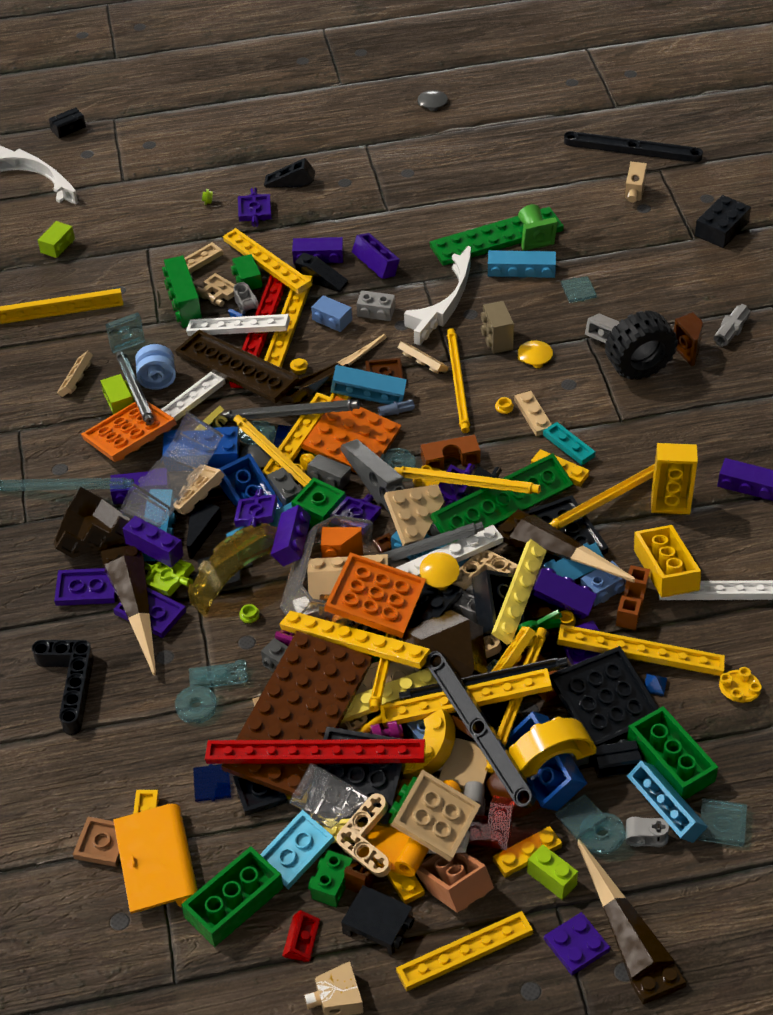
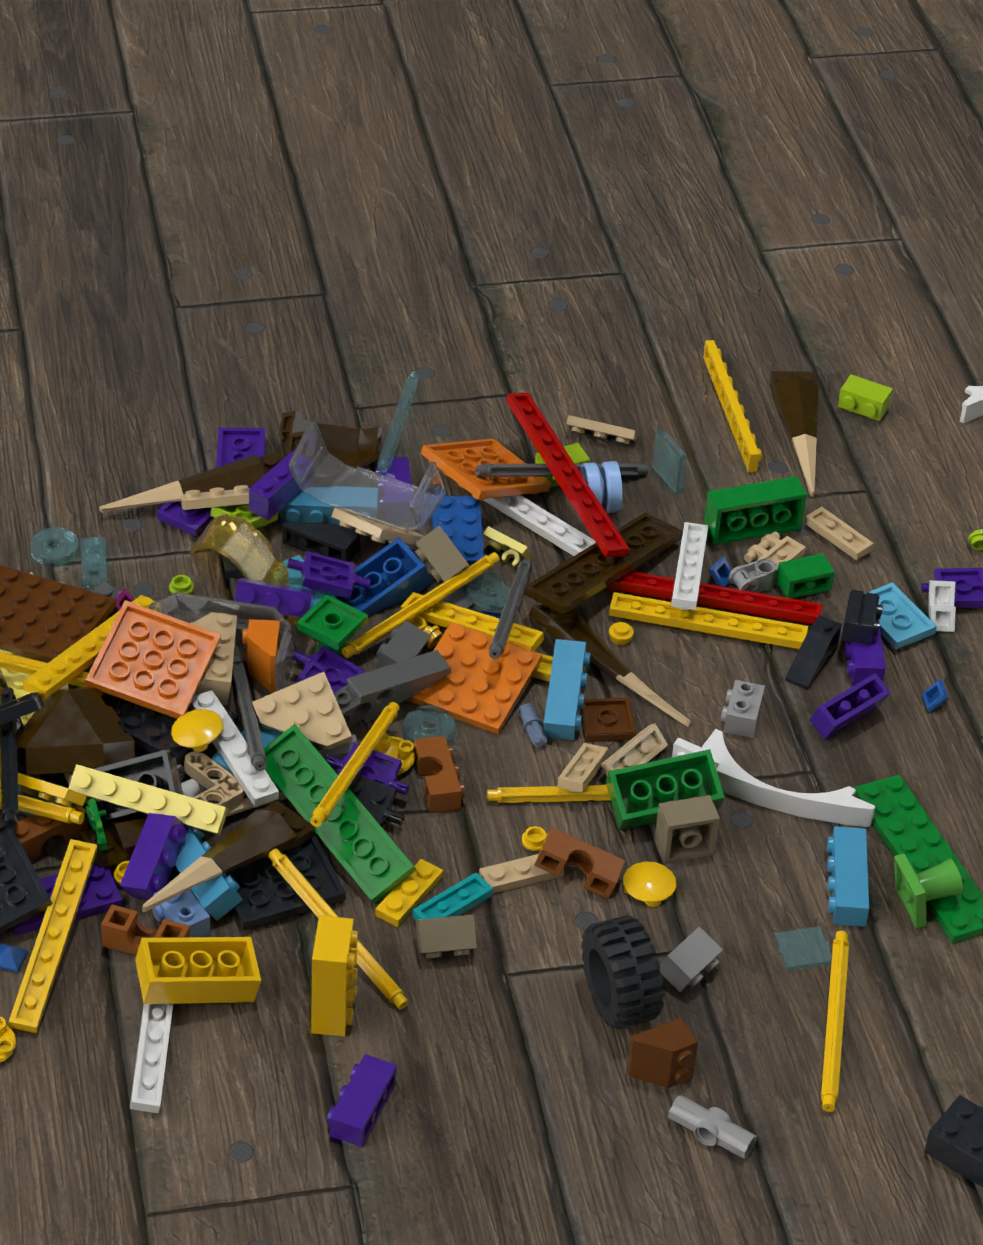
camera: 85 degrees right, 5 degrees down
(49, 275) = (798, 402): none -> dark brown plate
(79, 659) = (100, 451): black beam -> none
(150, 375) = (567, 475): none -> red plate
(156, 588) = (215, 498): none -> tan plate
(241, 442) = (441, 555): none -> dark tan brick
(268, 261) = (827, 592): yellow plate -> none
(278, 216) = (942, 604): none -> white slope
(280, 237) = (900, 618): none -> medium azure plate
(284, 485) = (379, 607): dark grey brick -> none
(301, 240) = (861, 616): none -> black brick
(331, 313) = (719, 659): medium blue brick -> none
(357, 223) = (935, 696): none -> blue slope
(441, 378) = (582, 767): none -> tan plate
(466, 335) = (641, 787): none -> green brick
(530, 377) = (599, 866): none -> dark orange arch
(604, 441) = (446, 934): none -> dark tan brick
(636, 275) = (835, 1021): none -> yellow piece

